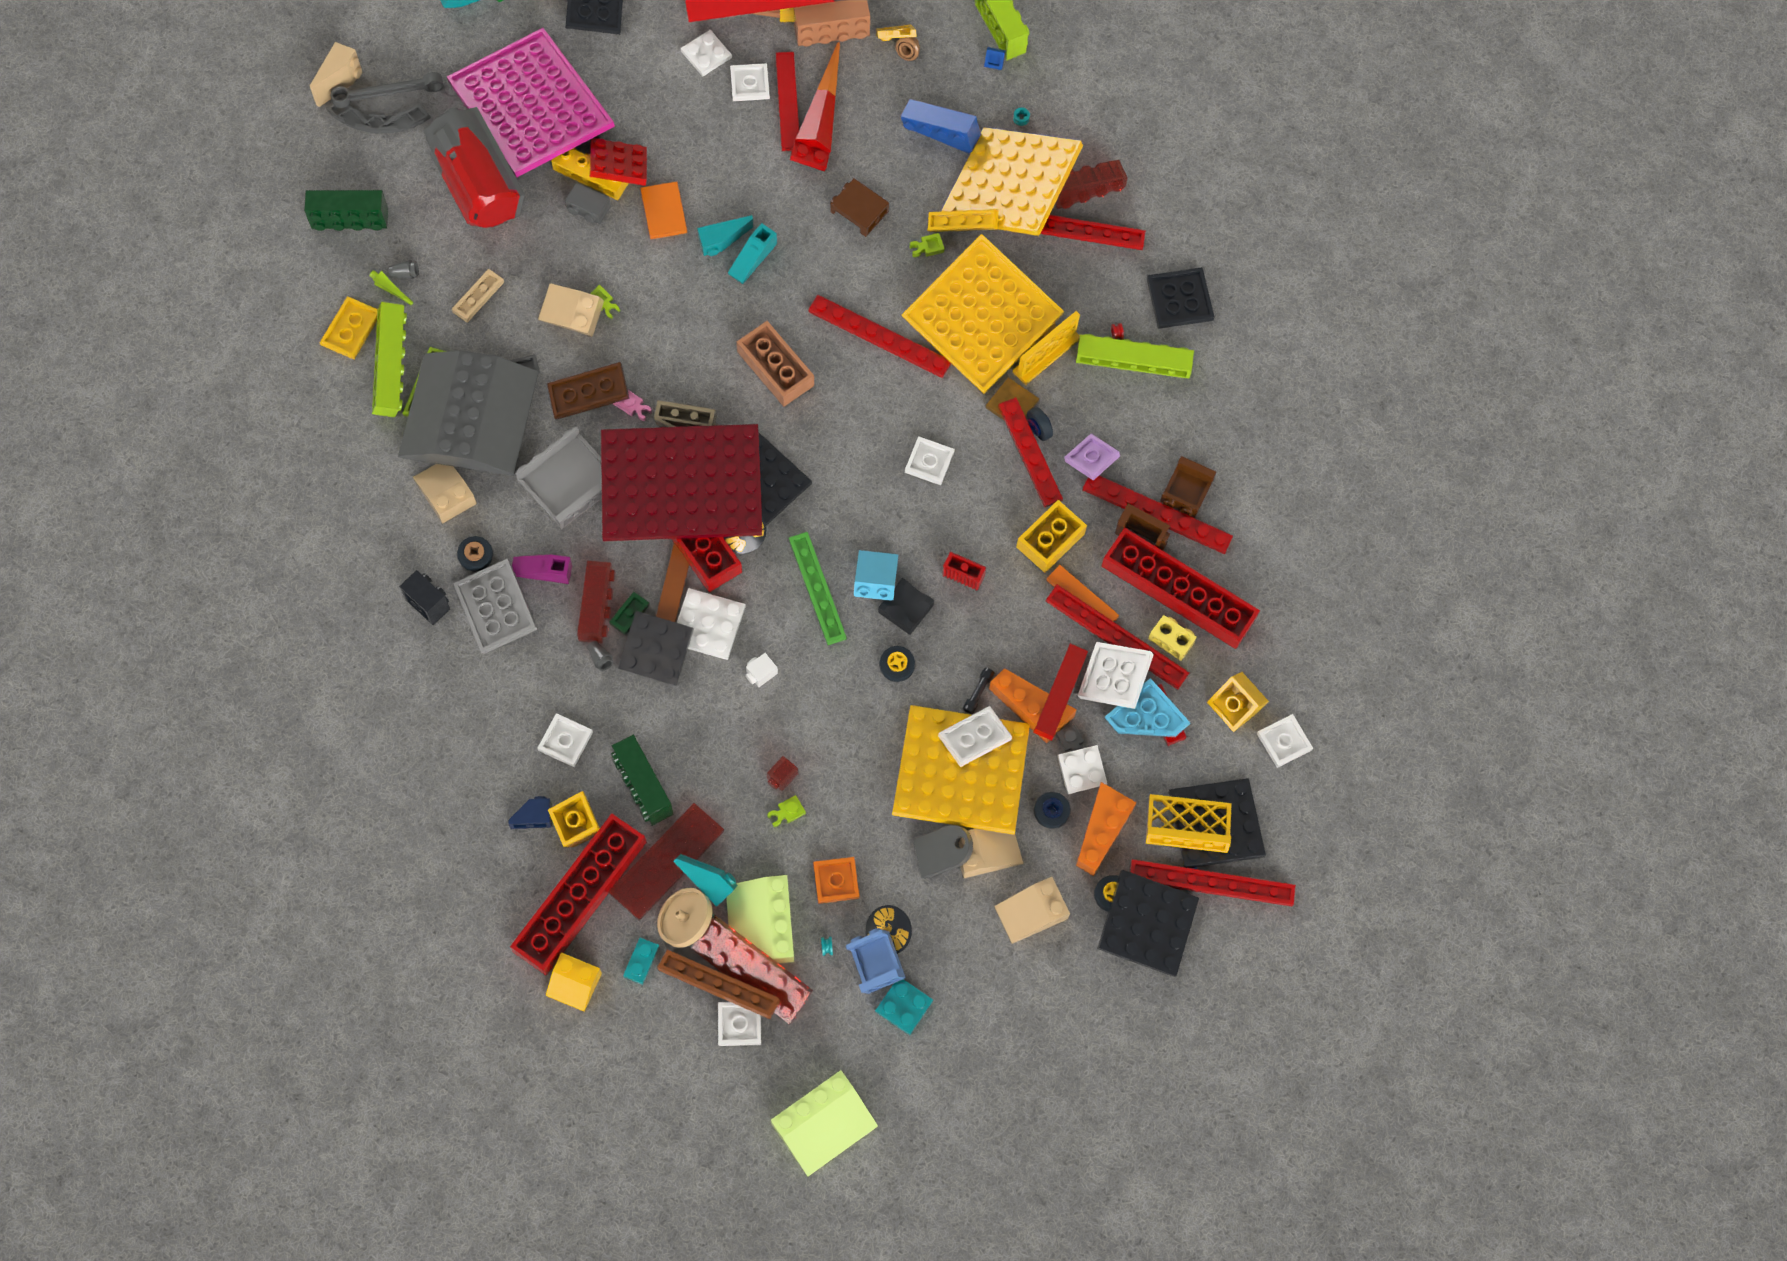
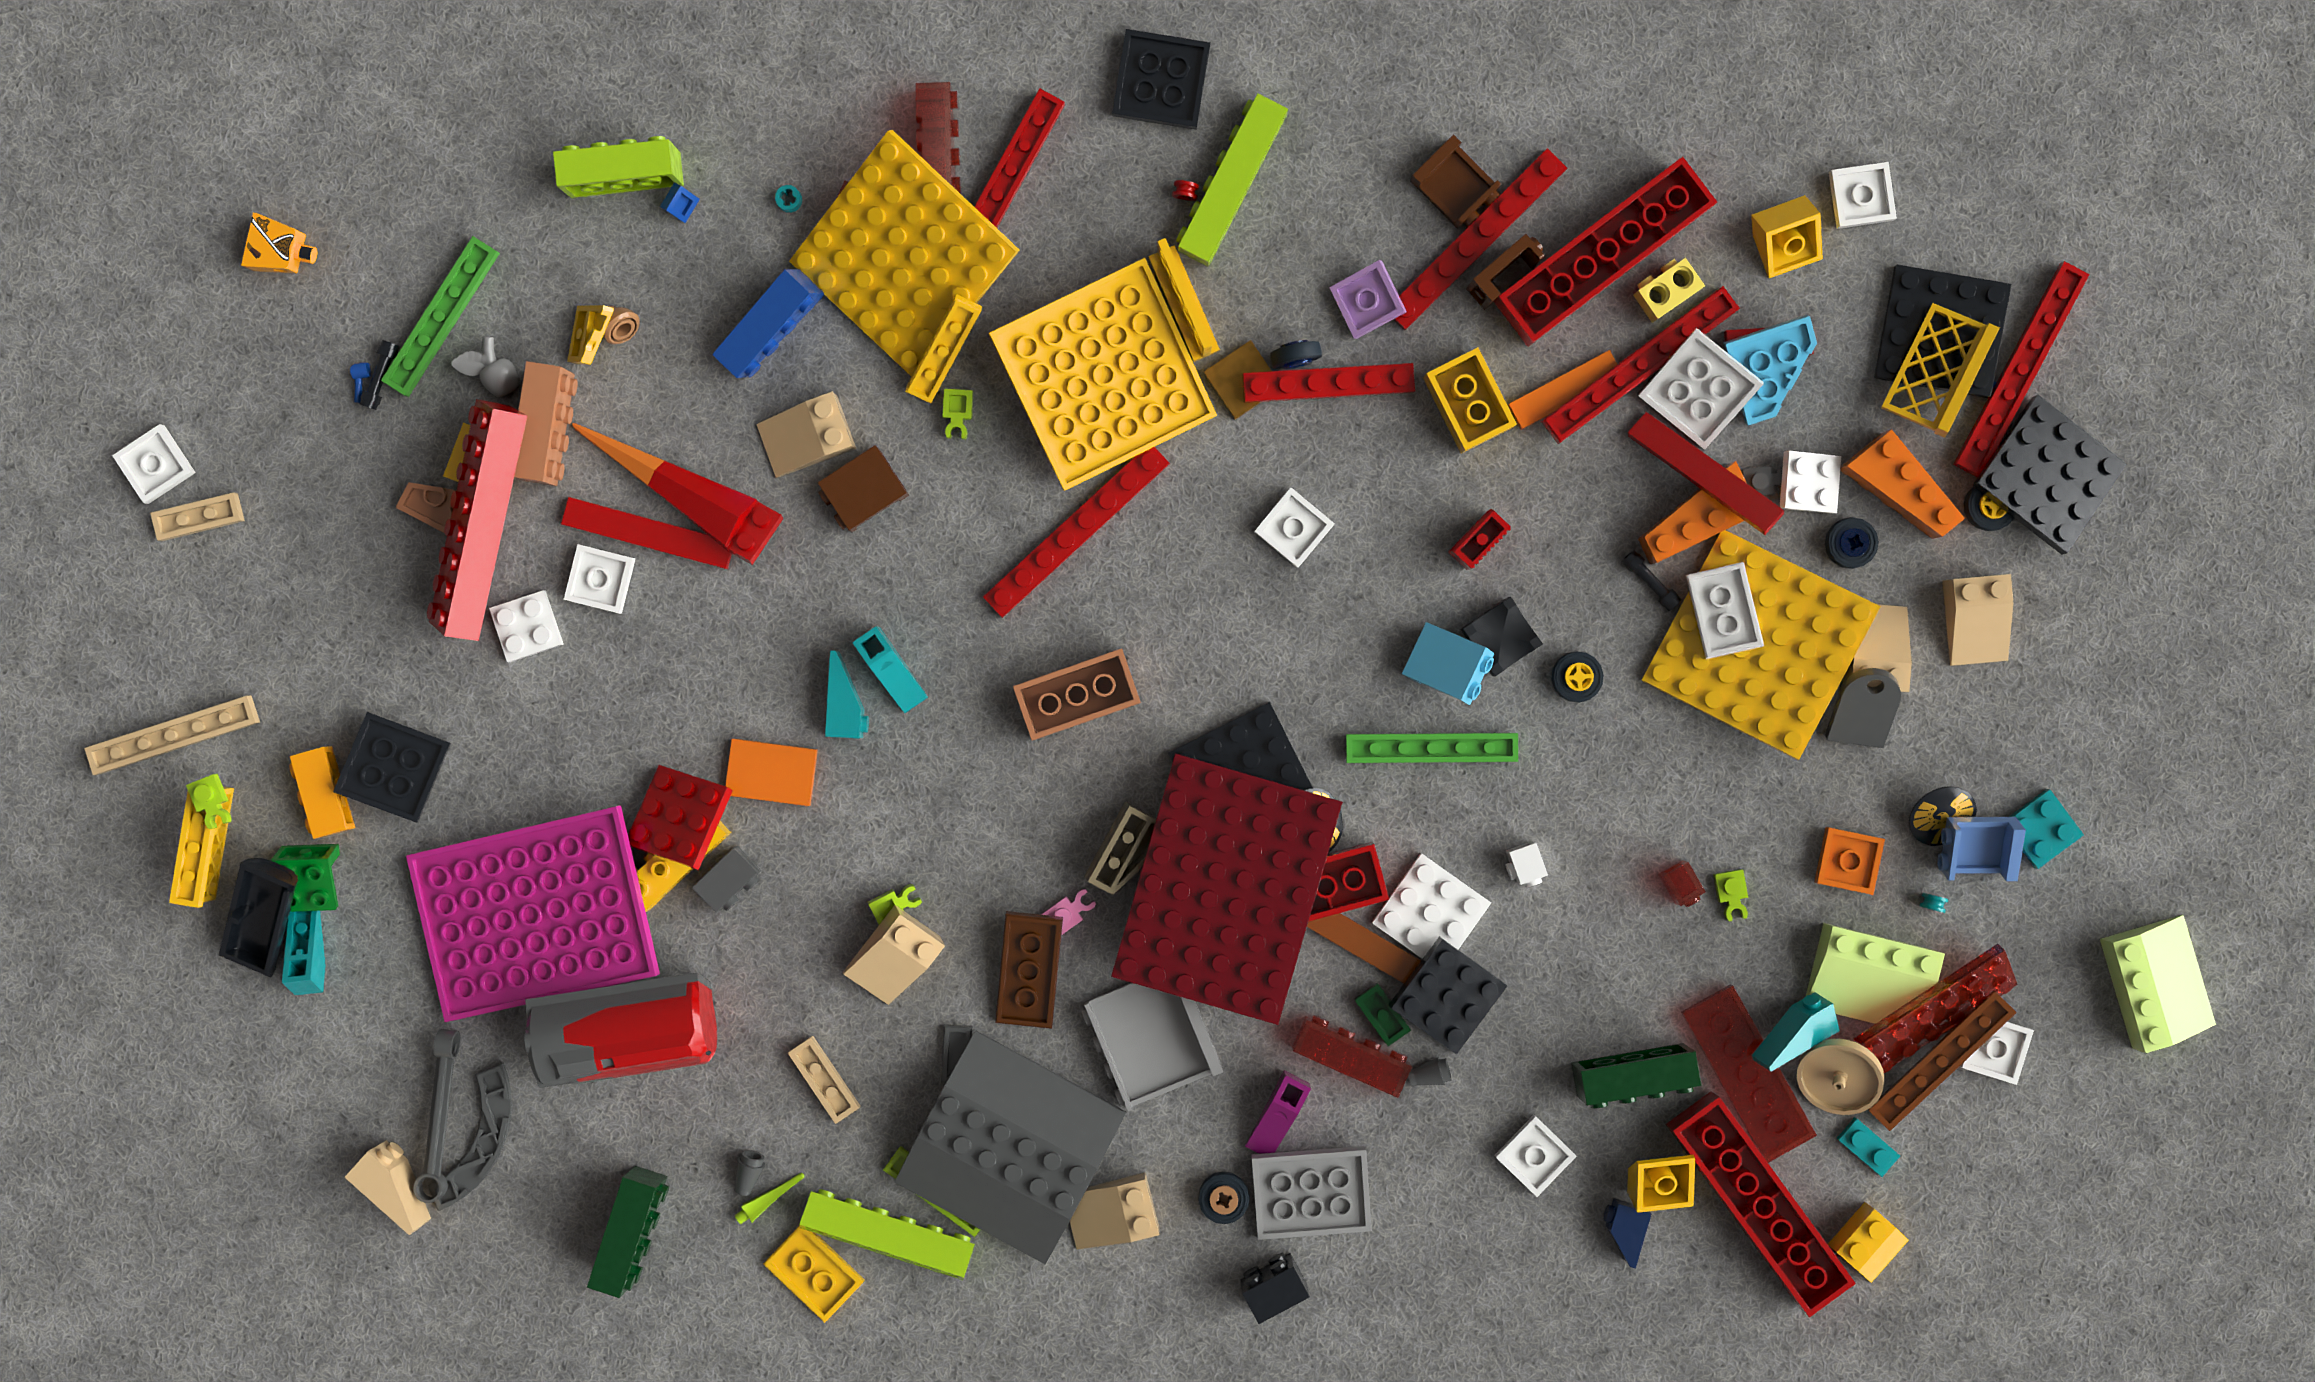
camera: 65 degrees left, 20 degrees up
(882, 168) = (806, 434): none -> tan slope

